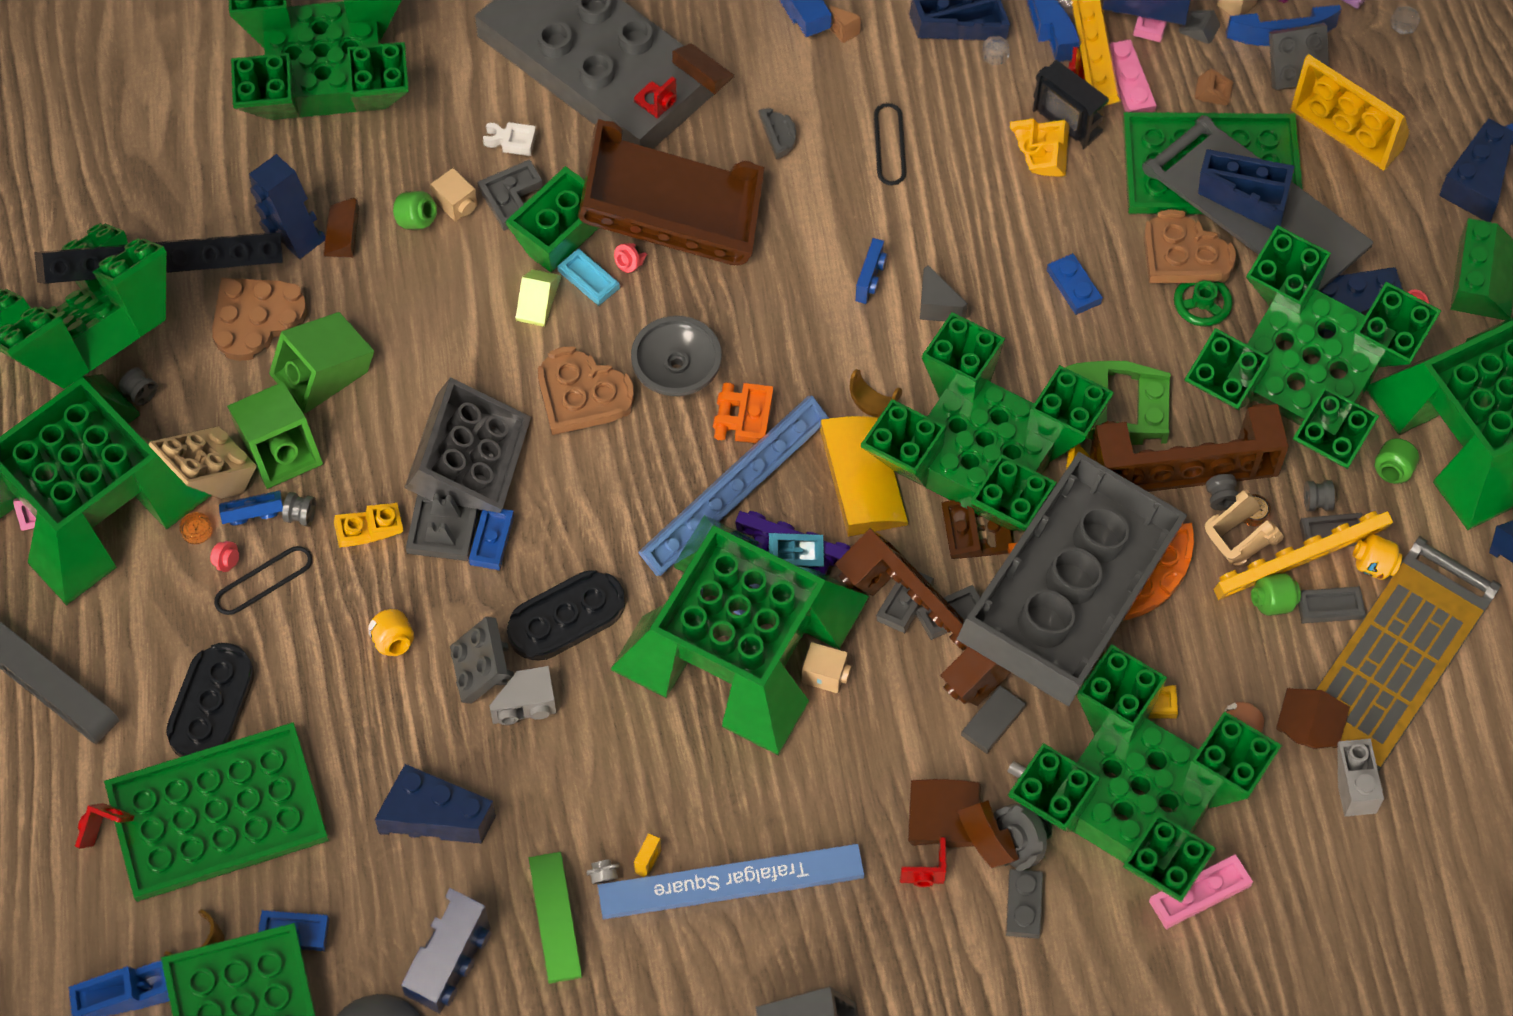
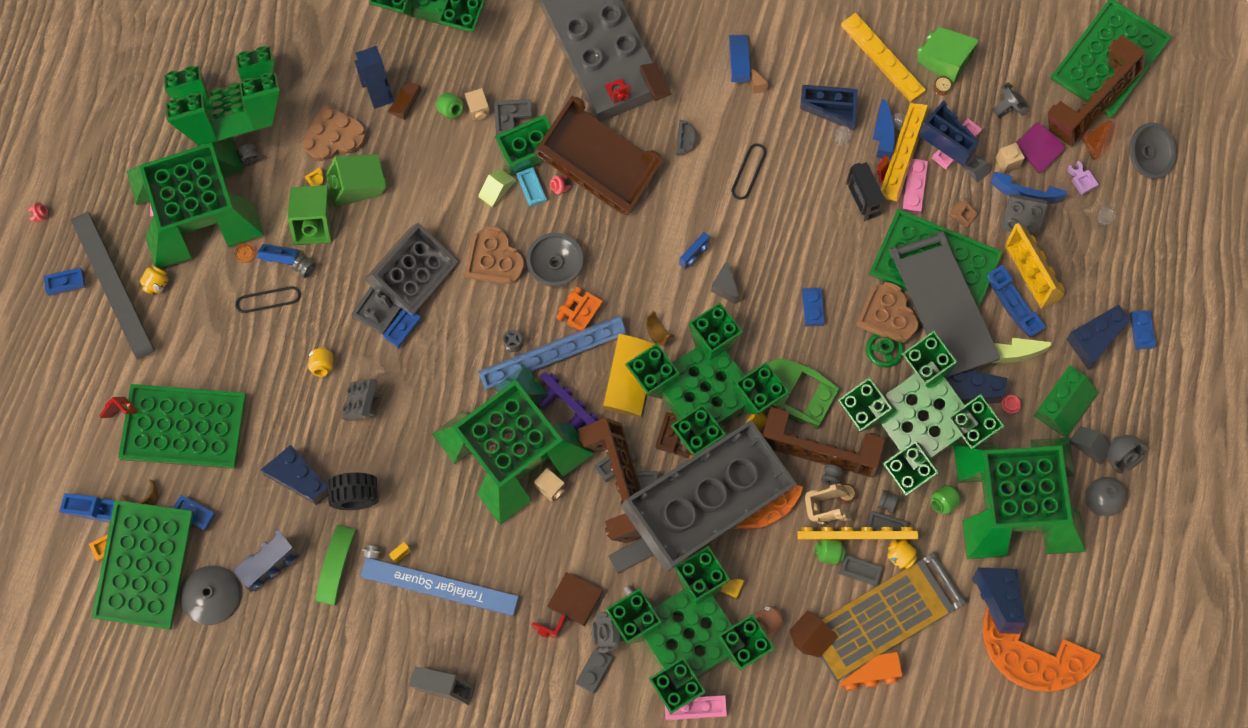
camera: 25 degrees right, 10 degrees up
(71, 617) = (154, 280): none -> yellow head
(180, 256) = (291, 82): black brick -> none
(207, 461) = (260, 218): tan slope -> none
(210, 699) = (208, 359): black tile -> none
(224, 556) = (251, 277): coral plate -> none
(255, 382) = (315, 178): none -> yellow tile
(369, 526) = (338, 291): yellow slope -> none
(514, 139) = (529, 82): white plate -> none
(524, 696) = (376, 430): light grey slope -> none
(534, 791) = (352, 491): none -> black tyre
(565, 615) = (422, 391): black tile -> none
(664, 485) = (512, 336): none -> dark grey wheel
(798, 549) = (562, 409): medium azure slope -> none
(993, 845) = (591, 630): reddish brown slope -> none
(1043, 145) = (839, 210): yellow slope -> none
(1247, 186) = (940, 292): dark blue wedge -> none
(1344, 174) = (1013, 302): none -> blue slope
(1358, 778) = (818, 681): light grey slope -> none
(1391, 228) = (1020, 350): none -> yellowish green slope
(1435, 724) = (879, 669): none -> orange slope

